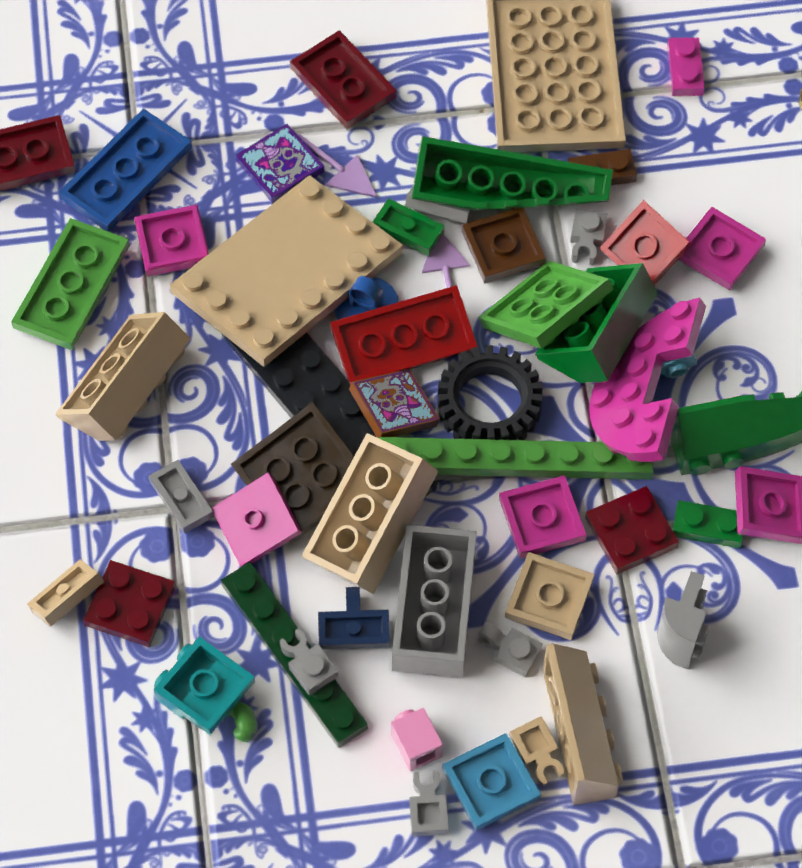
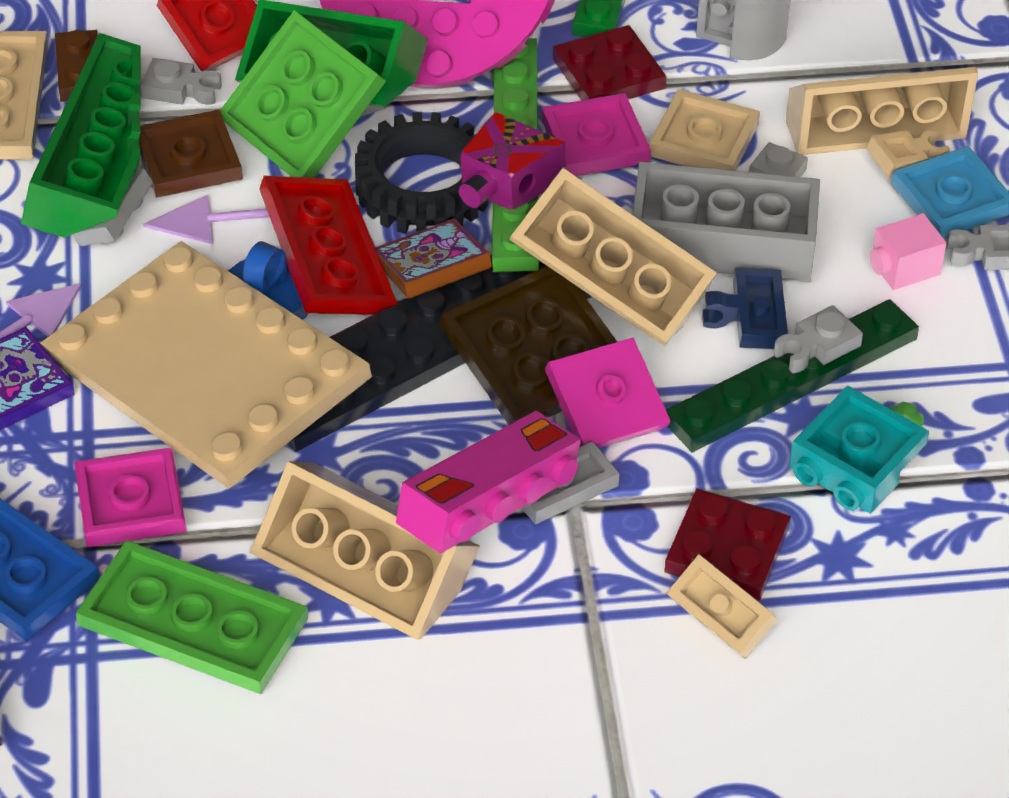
camera: 90 degrees left, 15 degrees down
(143, 431) = (487, 481): none -> dark pink brick
(409, 226) = (144, 240): green plate -> none
(461, 436) = (509, 163): none -> magenta torso

